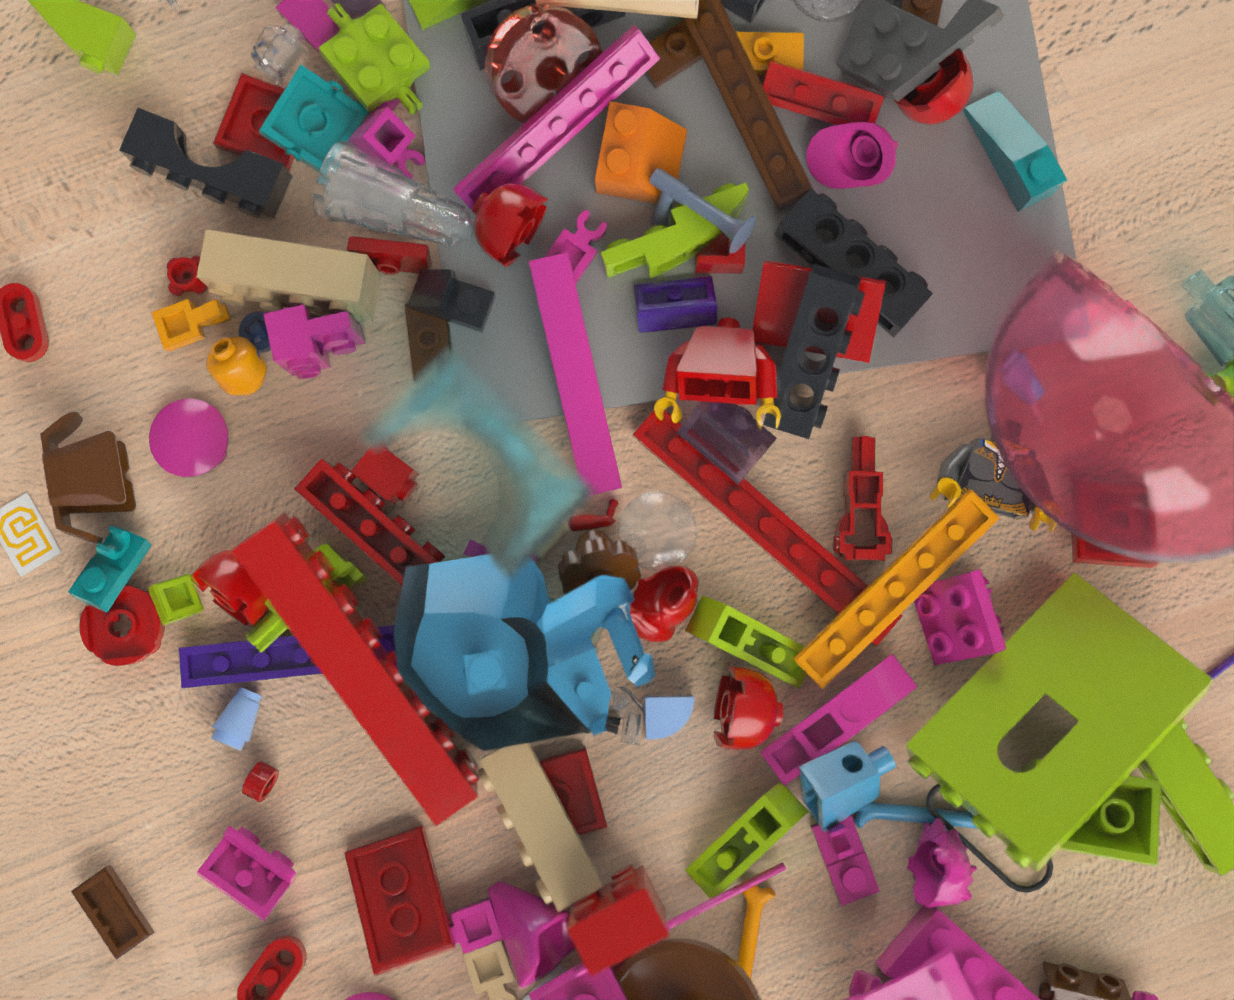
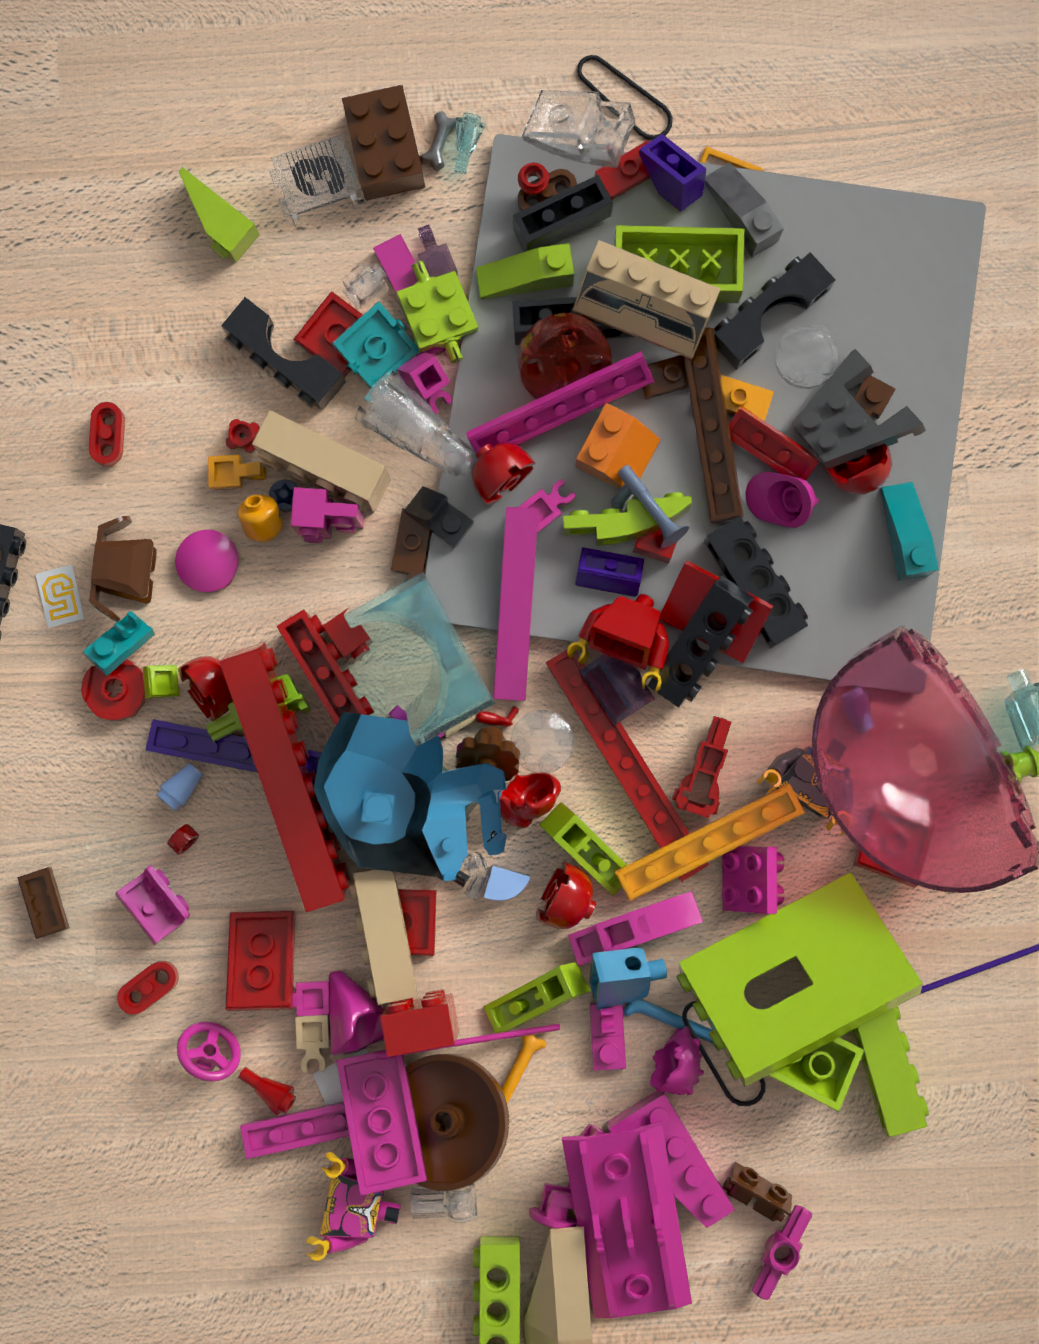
camera: 20 degrees right, 0 degrees up
(392, 256) = (402, 468): red plate -> none

